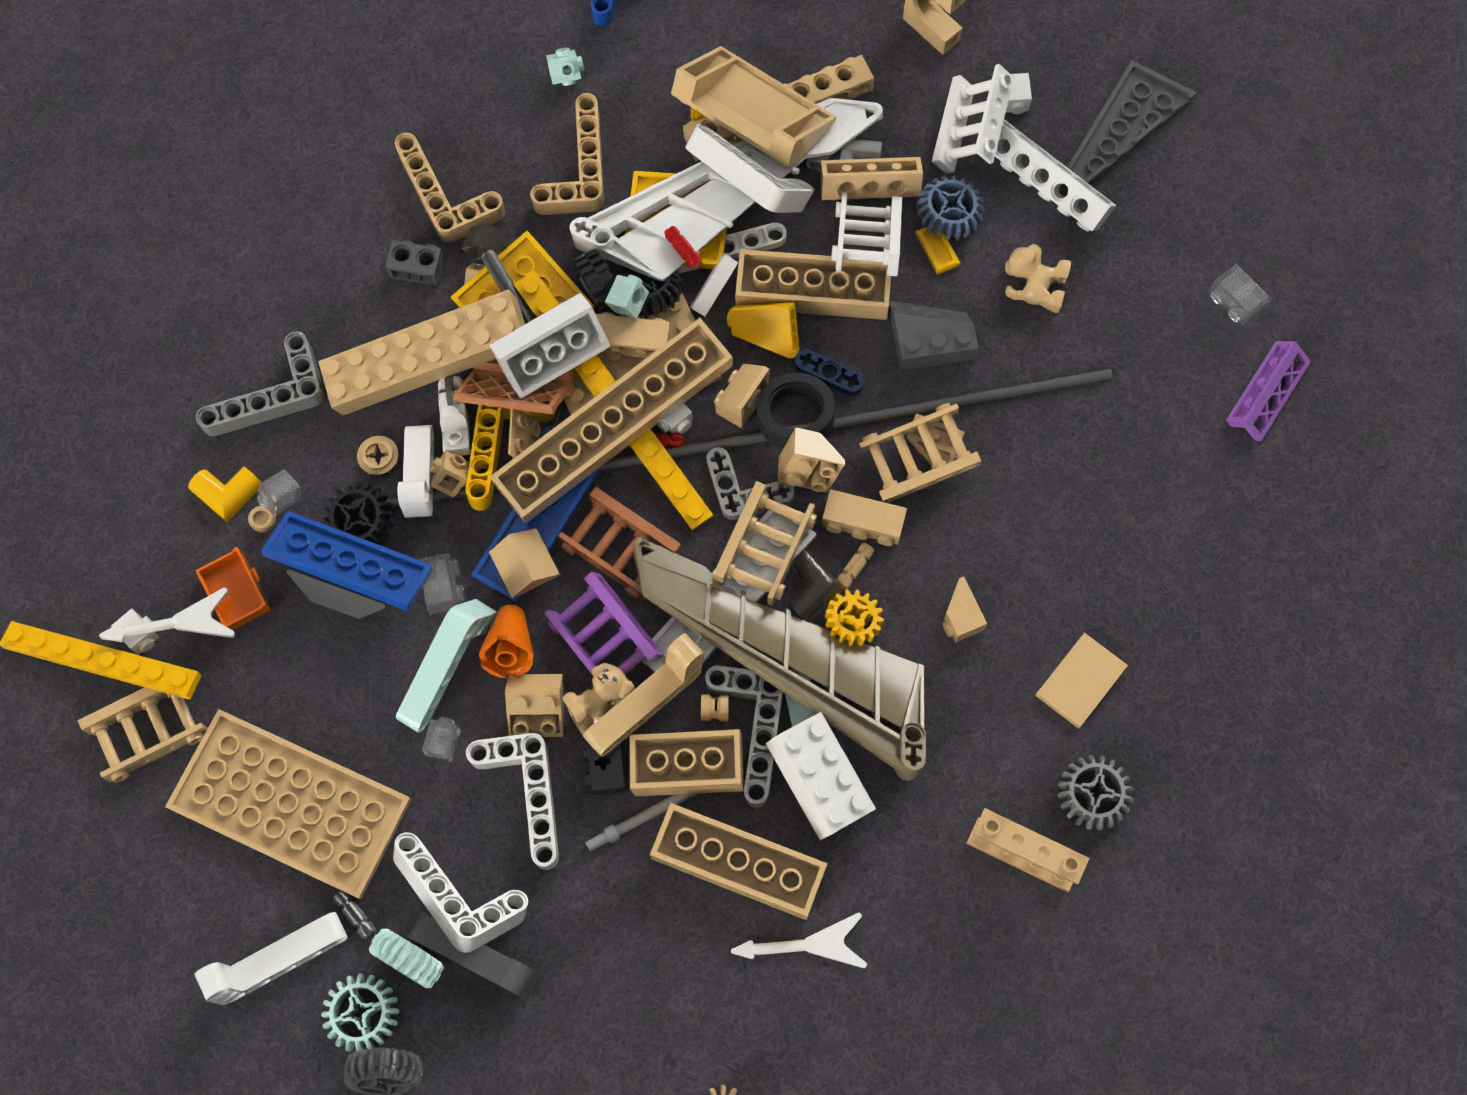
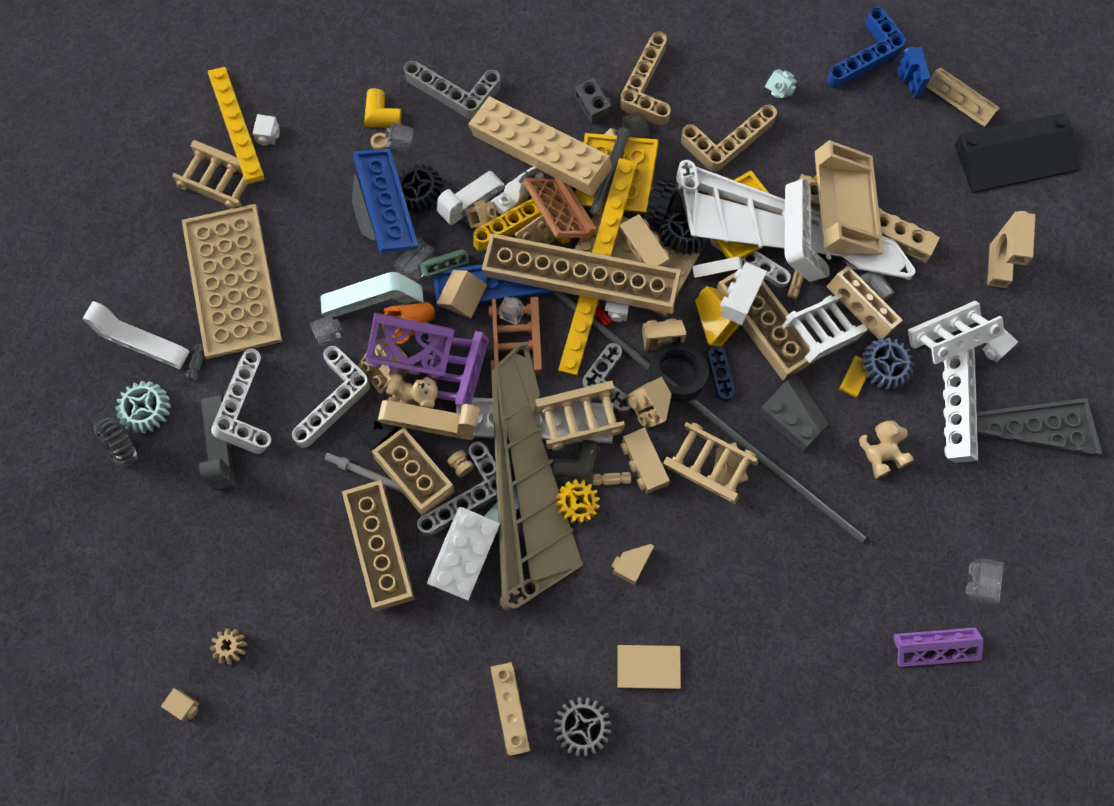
camera: 50 degrees right, 0 degrees up
(192, 619) = (293, 151): white piece -> none
(244, 597) = (327, 159): orange container -> none
(370, 447) = (464, 163): tan gear -> none
(406, 958) = (186, 405): light aqua gear -> none
(471, 554) = (444, 262): none -> sand green piece
(511, 657) = (434, 333): none -> medium lavender fence
(550, 345) = (594, 203): white brick -> none
(590, 523) = (512, 307): none -> clear brick
(627, 296) = (663, 222): light aqua brick -> none
(683, 247) = (721, 230): red axle -> none
(772, 279) = (742, 293): none -> white brick
(794, 227) = (795, 285): none -> tan axle
(825, 943) = (369, 632): white piece -> none

